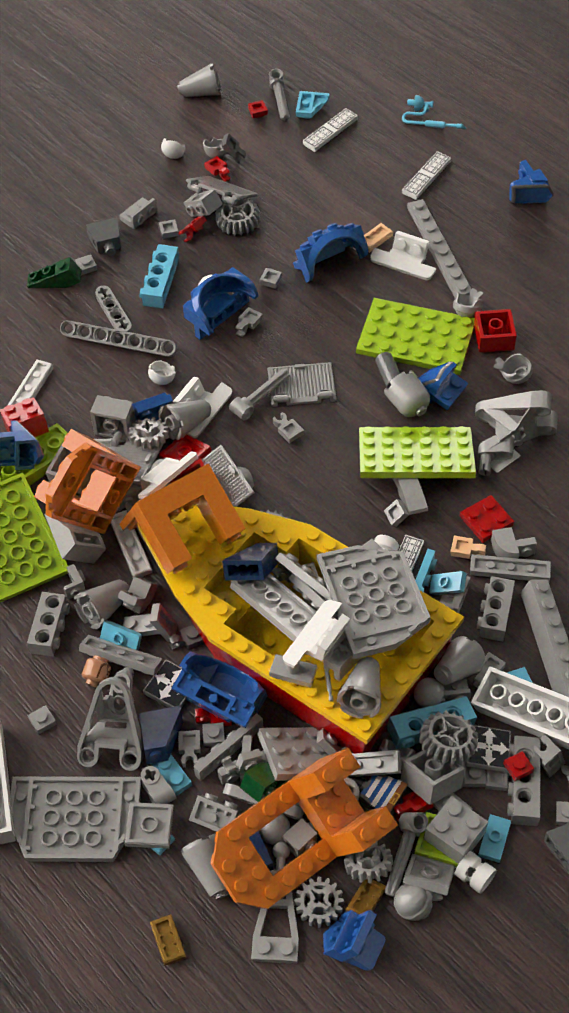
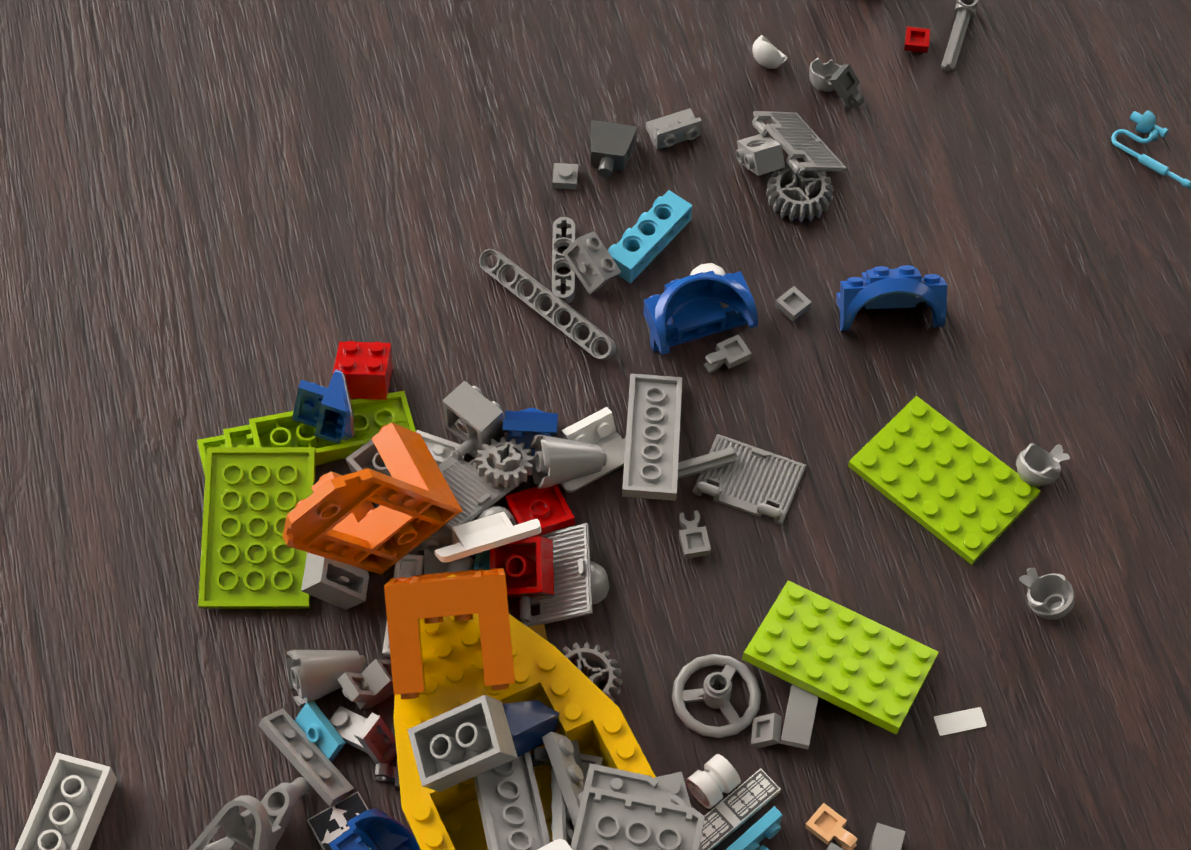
camera: 25 degrees right, 5 degrees up
(33, 381) = (404, 319): white tile -> none
(42, 719) = (167, 795): light grey plate -> none
(44, 615) = (242, 655): light grey brick -> none
(58, 275) = (521, 177): dark green slope -> none
(77, 585) = (306, 634): light grey bracket -> none
(96, 670) = (264, 764): nougat head -> none
(133, 302) = (591, 262): none -> light grey bracket
(161, 372) = (573, 379): white hair -> none
(168, 229) = (698, 170): light grey plate -> none
(195, 225) = (735, 181): red plate -> none
(218, 166) = (814, 104): red plate -> none
(231, 382) = (652, 437): none -> light grey plate
(231, 578) = (462, 743): none -> light grey brick
(310, 103) = (994, 60): medium azure wing -> none
(330, 130) = (1000, 112): white tile -> none
(354, 507) = (716, 694): none -> light grey piece
(377, 236) = (970, 305): light nougat plate -> none
(387, 367) = (874, 516): dark grey pin -> none
(406, 256) = (995, 353): white plate -> none
(408, 394) = (877, 566): light grey cylinder -> none
(426, 175) = (1096, 239): white tile -> none
(439, 248) = (1050, 360): light grey plate -> none
(443, 384) = (932, 571): blue piece -> none
(485, 517) = (885, 797): red plate -> none
(495, 330) = (1053, 523): red brick -> none
(536, 422) = (1023, 673): light grey connector -> none

